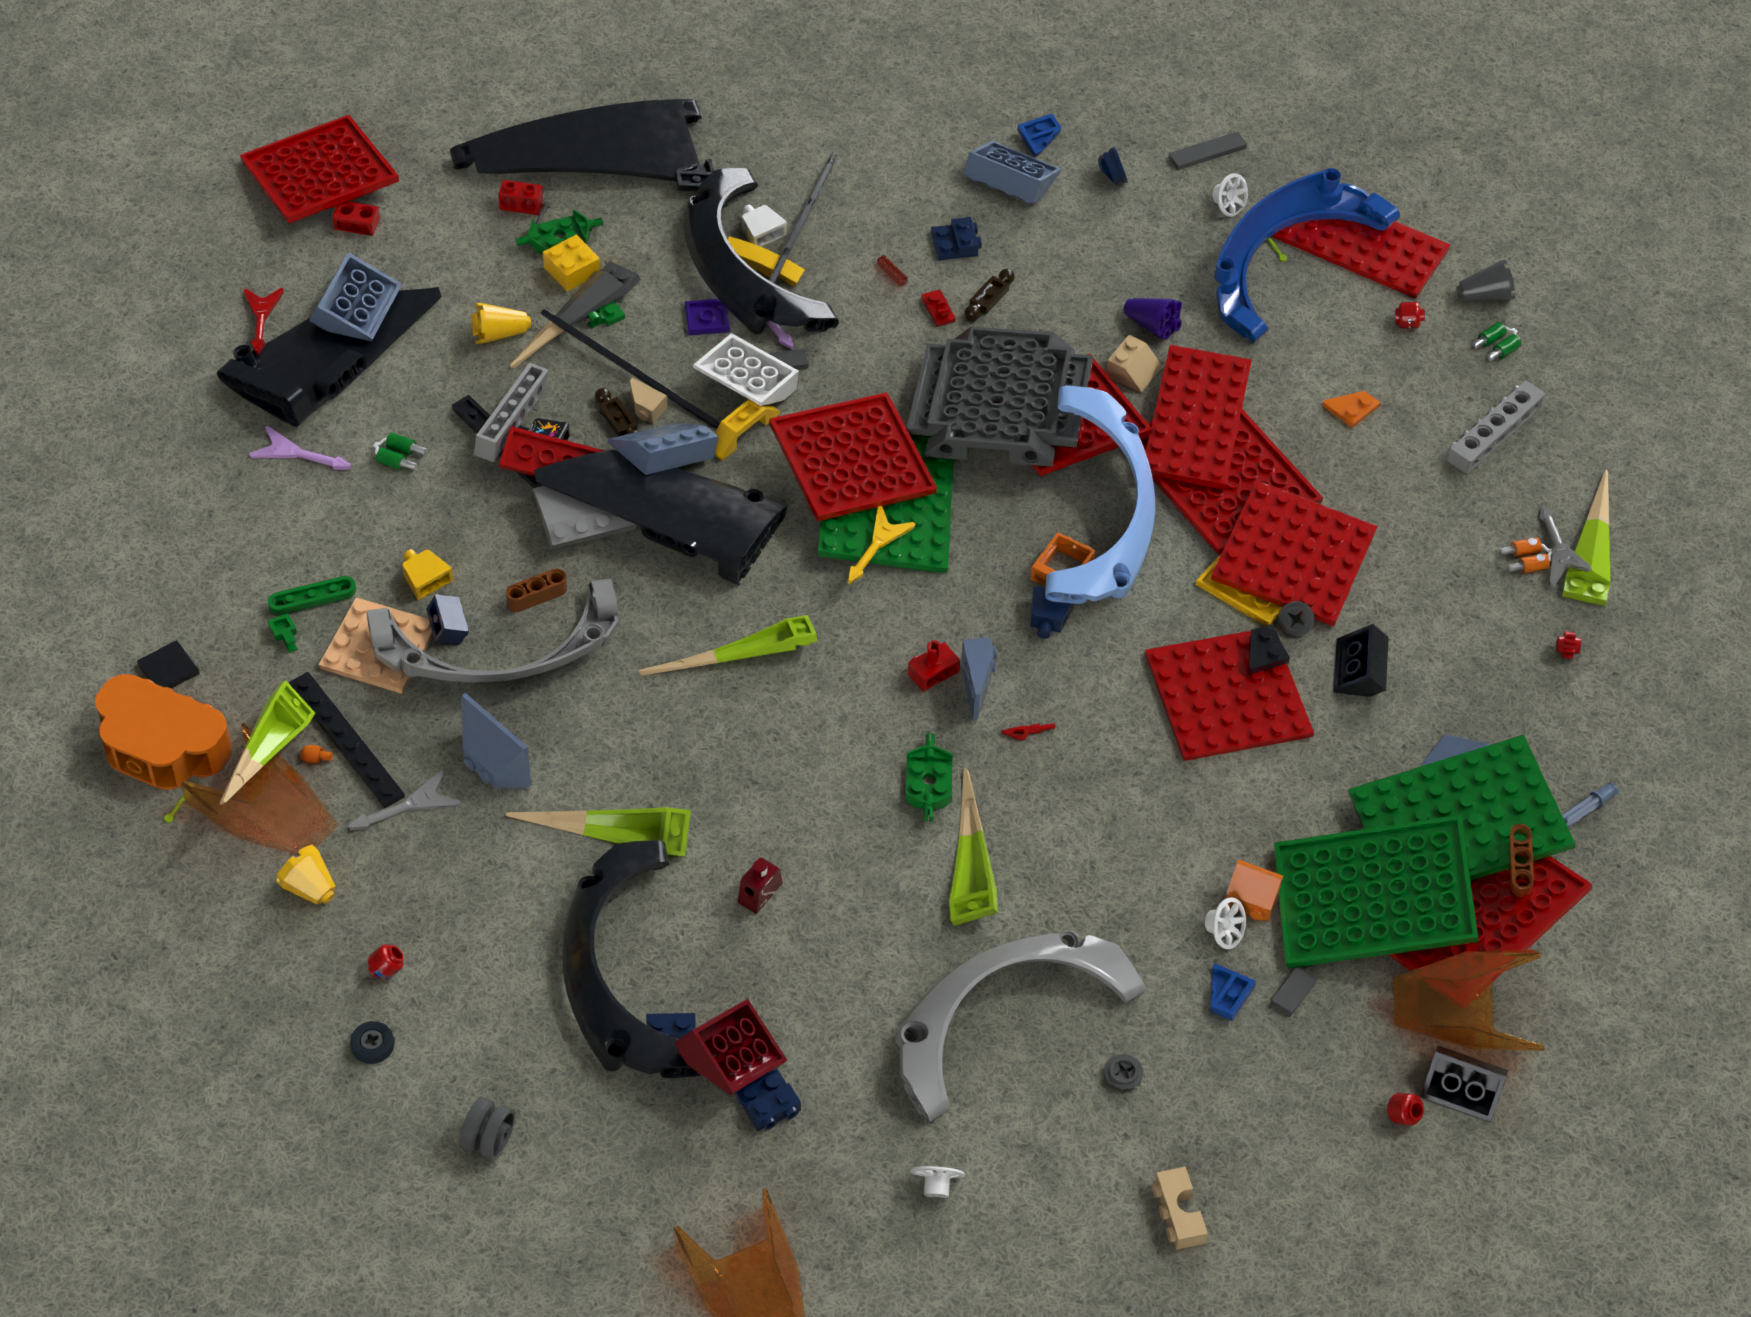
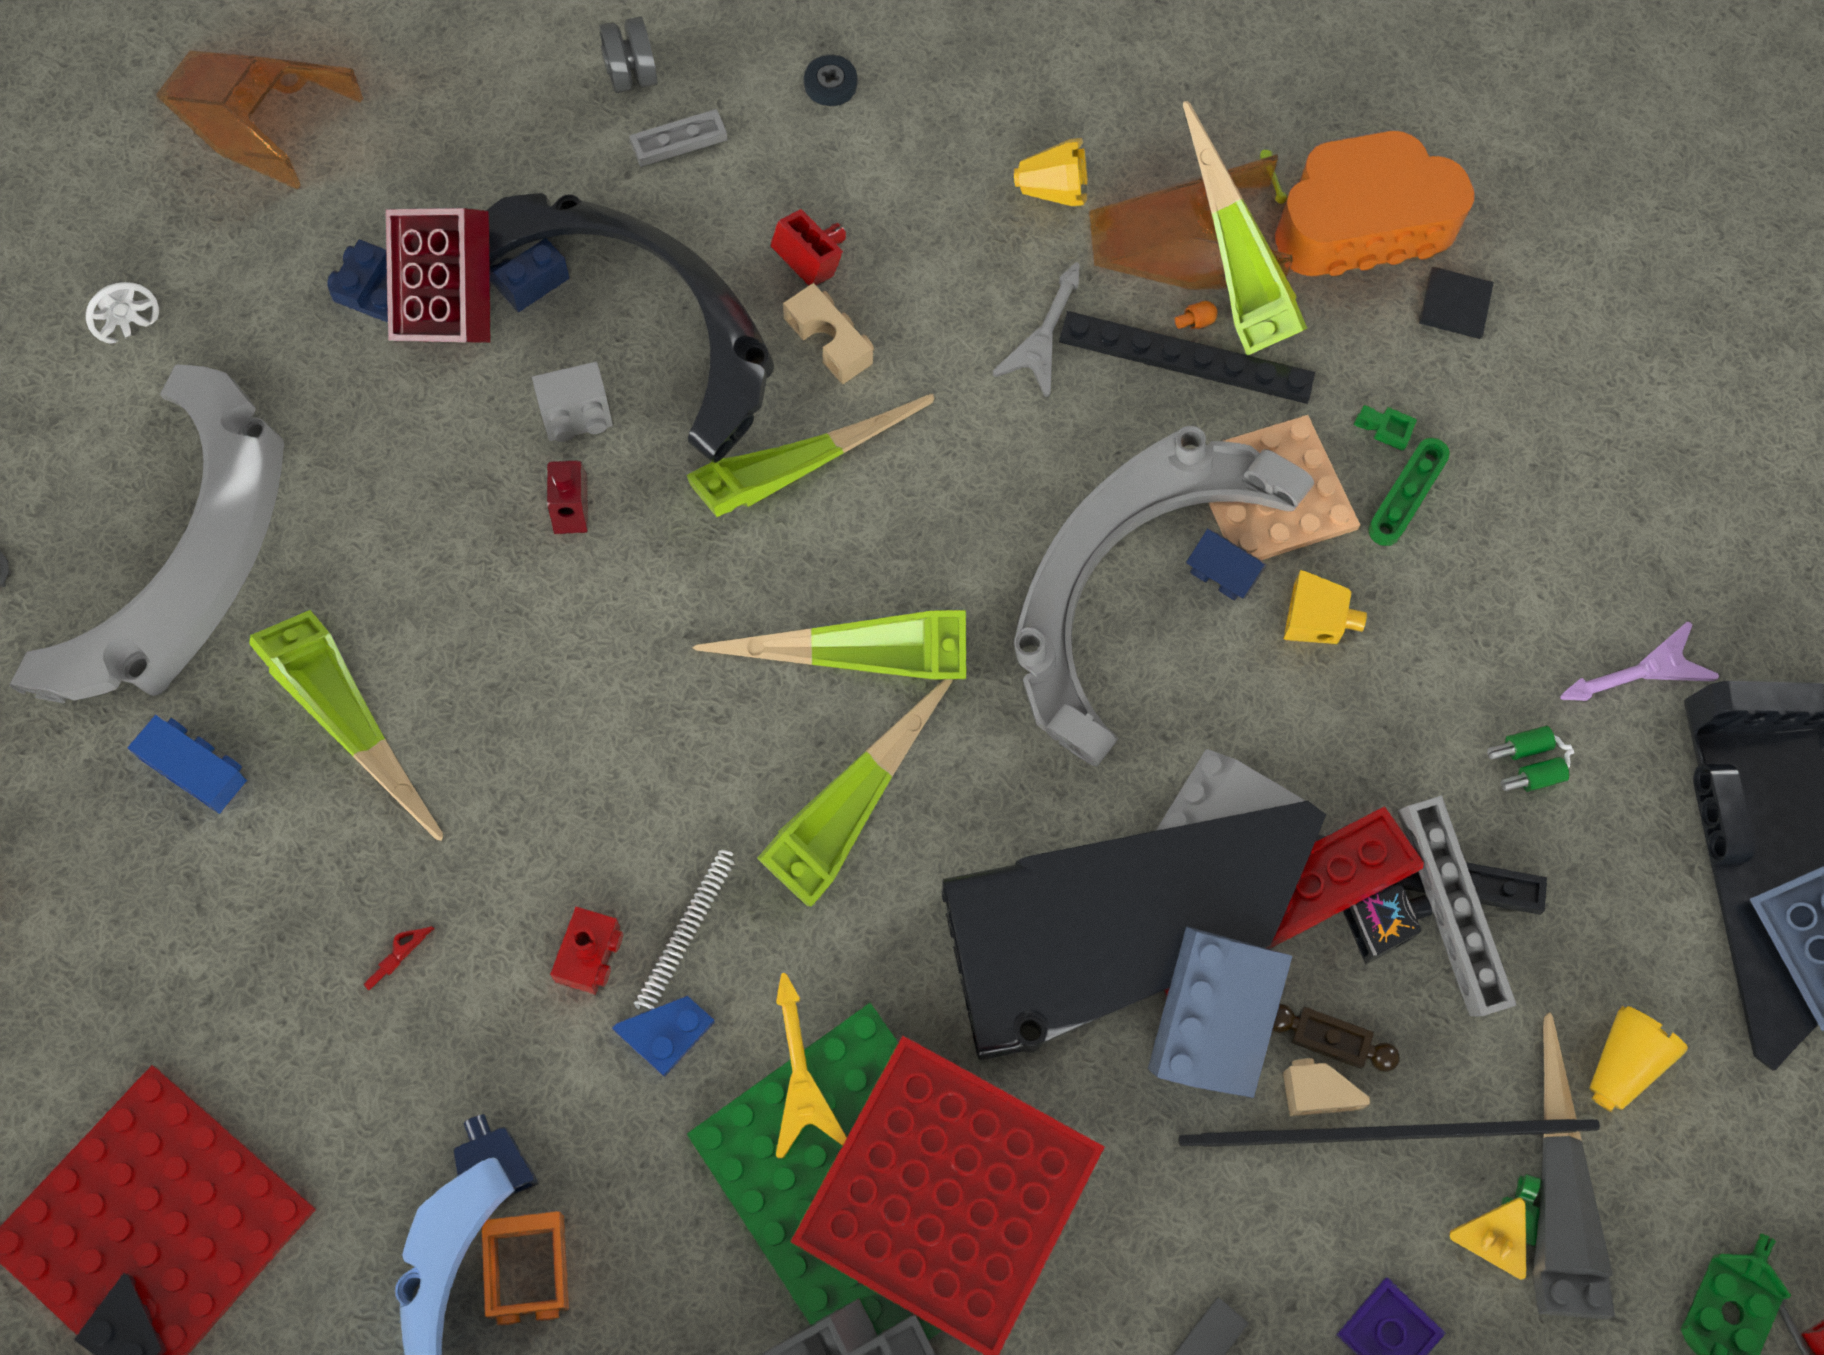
camera: 140 degrees right, 15 degrees up
(385, 961) = (891, 148): red head -> none
(493, 749) = (1051, 427): sand blue slope -> none
(495, 934) = (807, 247): none -> red brick
(502, 1066) = (678, 137): none -> light grey plate
(529, 897) = (815, 313): none -> tan arch
(536, 590) = (1172, 672): dark orange beam -> none
(571, 262) = (1658, 1261): yellow brick -> none
(627, 312) = (1498, 1237): none -> yellow piece
(647, 690) = (901, 645): none -> lime plate
(714, 927) = (572, 402): none -> light grey brick
(738, 423) = (1158, 1157): yellow slope -> none
(749, 371) = (1227, 1239): white slope -> none
(876, 644) = (681, 932): none -> white piece
(923, 614) = (665, 1032): none -> blue wing
(933, 763) = (456, 761): green plate -> none
(977, 670) = (519, 982): sand blue slope -> none
(1073, 883) = (188, 762): none -> blue brick

